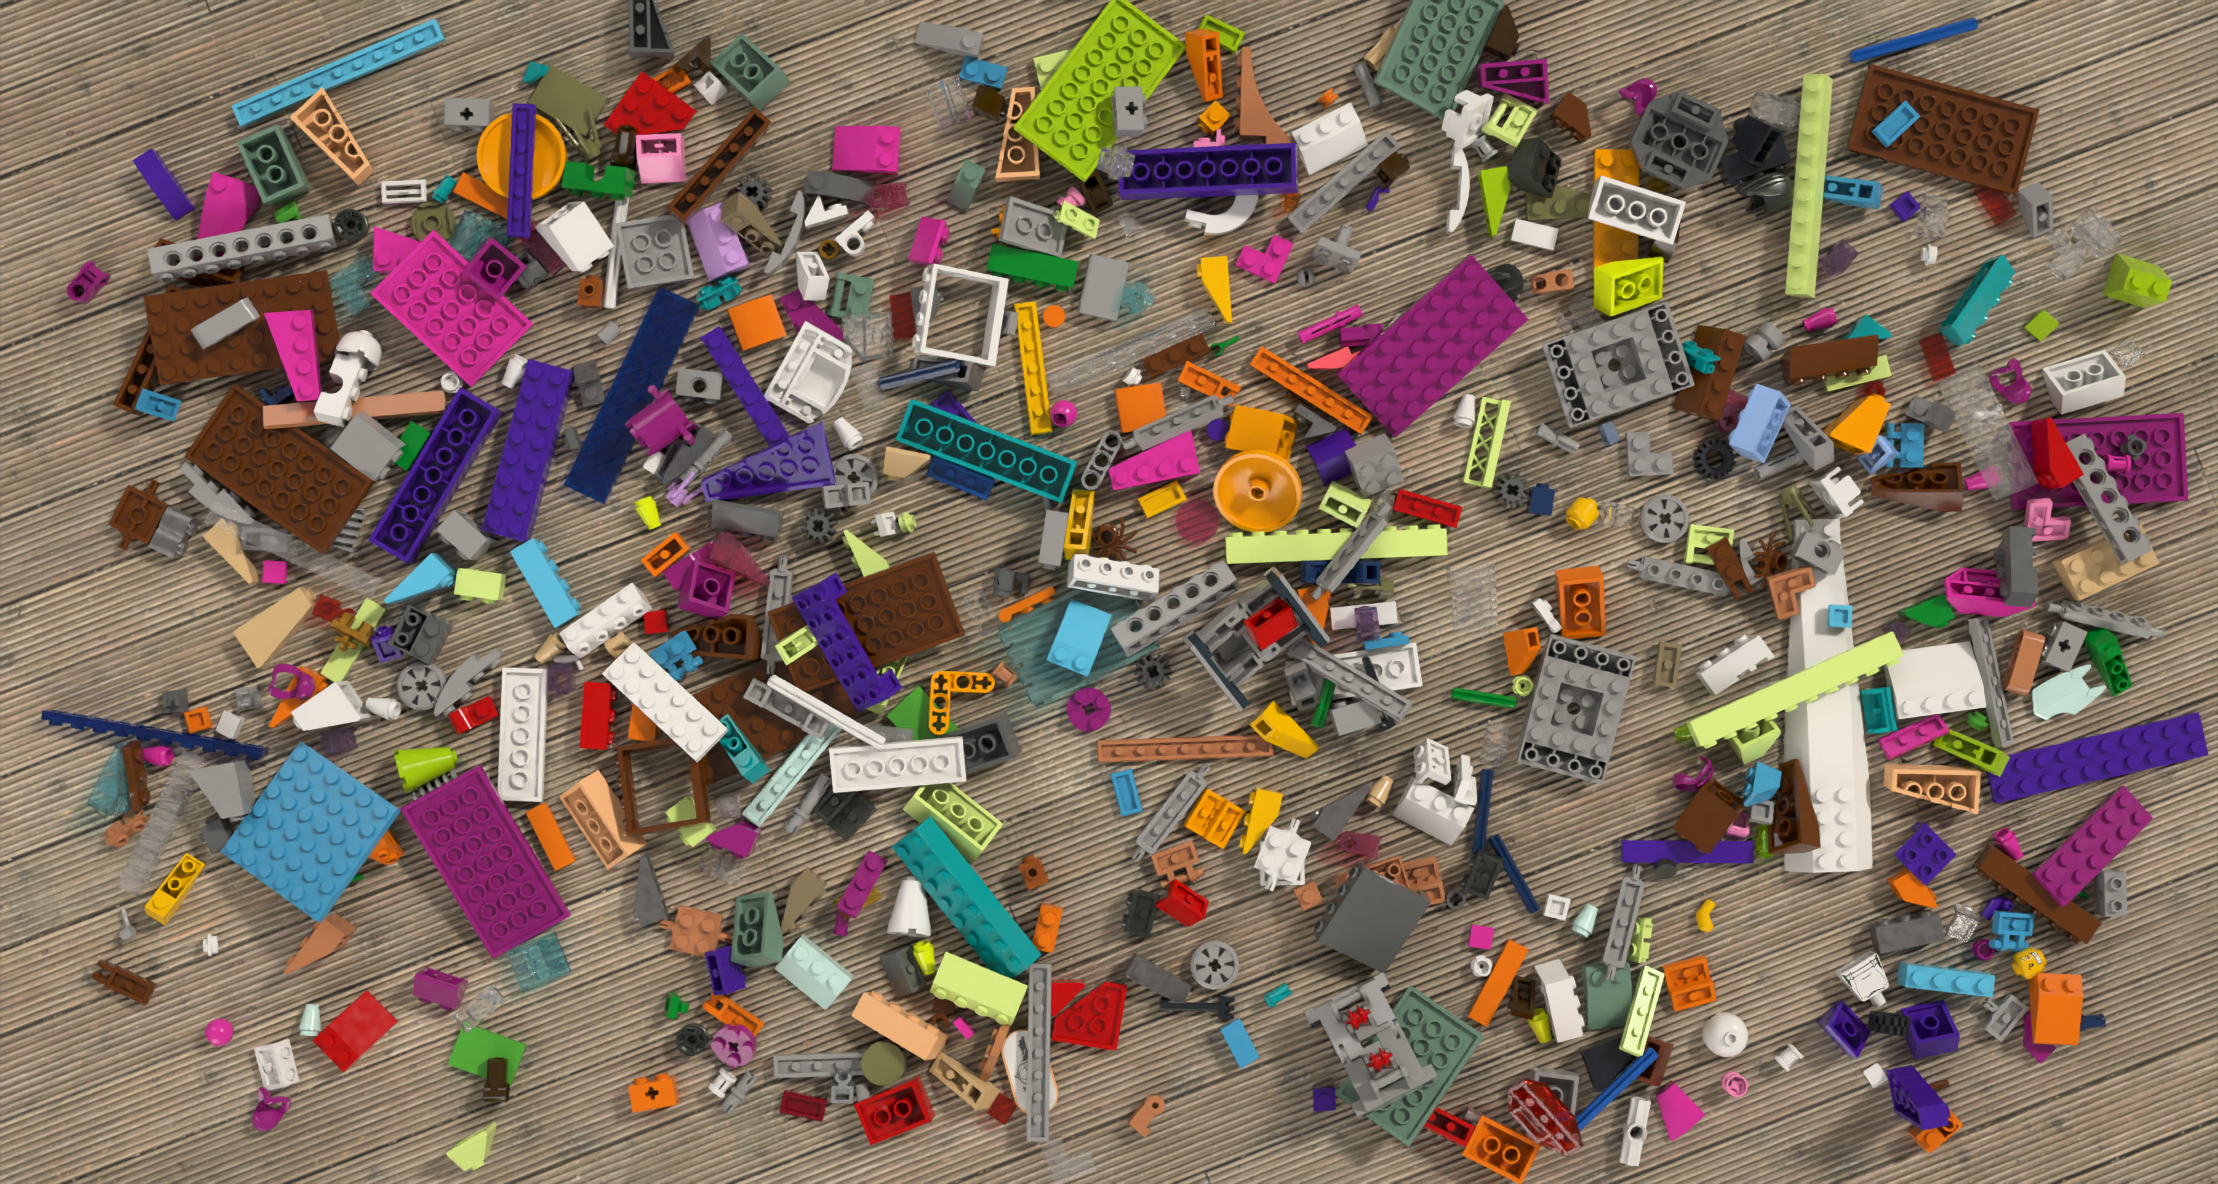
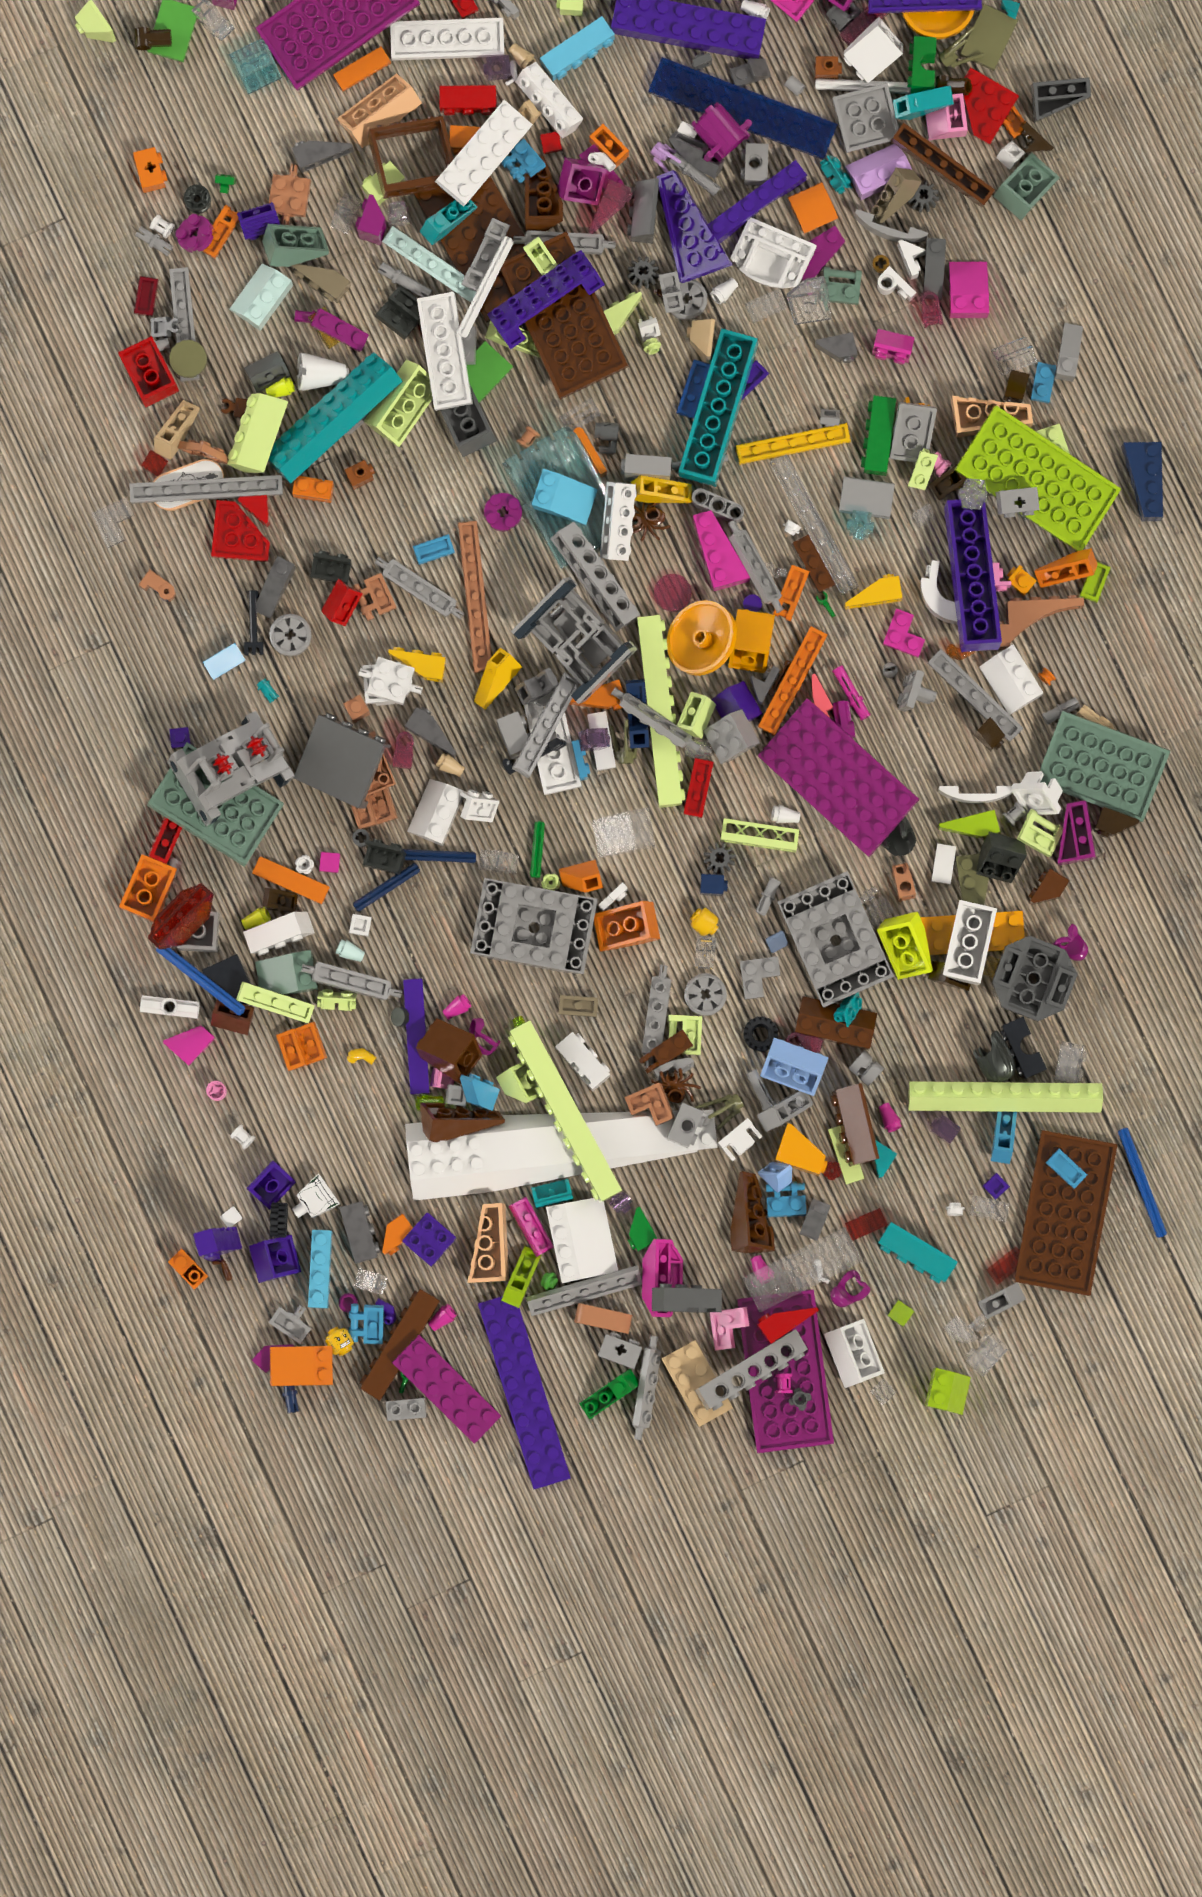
camera: 90 degrees right, 5 degrees down
(643, 182) = (922, 103): none -> teal slope
(648, 512) = (644, 129): neon yellow cone -> none
(682, 564) = (601, 159): none -> white arm
(811, 276) = (856, 249): white slope -> none
(900, 1026) = (220, 371): light nougat wedge -> none
(902, 316) = (828, 328): clear red tile -> none
(919, 374) = (779, 345): dark blue axle -> none
(951, 686) = (514, 393): light orange beam -> none
(963, 1026) = (223, 425): dark pink tile -> none
(966, 185) = (945, 375): sand green slope -> none
(967, 378) = (783, 371): flat silver slope -> none
(994, 316) = (829, 406): white window -> none
(1054, 316) = (839, 457): orange tile -> none
(1063, 413) = (755, 470): dark pink piece -> none
(1139, 406) = (767, 535): orange slope -> none
(1145, 674) = (535, 557): dark grey gear -> none
(1162, 499) = (688, 561): yellow tile -> none
(1214, 818) = (417, 625): light orange slope -> none
(1270, 623) = (588, 651): red brick -> none
(1325, 700) = (527, 710): green axle -> none
(1375, 197) = (962, 723): dark purple piece -> none
(1464, 783) = (461, 835): white bracket -> none
(1657, 800) = (457, 1006): none -> dark pink cone
(1725, 1034) = (258, 1081): white cylinder -> none
(1756, 139) = (1040, 1044): black torso -> none
(1839, 616) = (632, 1148): medium azure plate -> none
(2064, 694) = (578, 1354): light aqua shield -> none

